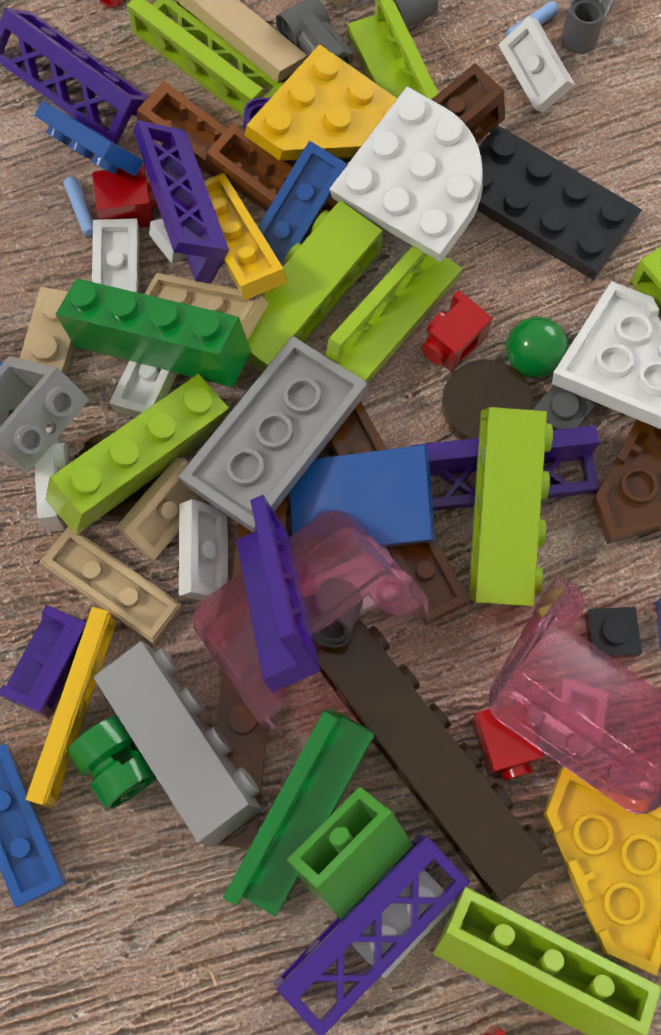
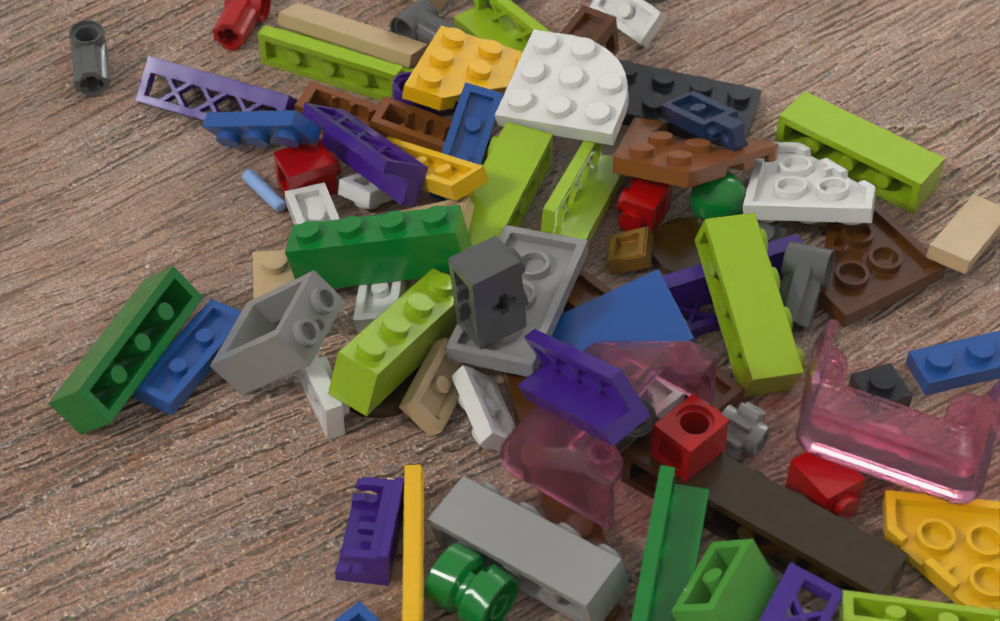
camera: 15 degrees left, 25 degrees down
(111, 585) = (386, 454): tan tile -> none
(227, 441) = (488, 291): none -> dark grey brick
(368, 687) = (689, 437): none -> red brick
(420, 387) = (630, 250): none -> pearl gold tile
(446, 651) = (745, 430): none -> light grey gear
(504, 300) = (654, 155): none -> dark orange wing
(556, 249) = (706, 119): none -> dark blue hinge
(583, 481) = (804, 274): none -> dark grey piece

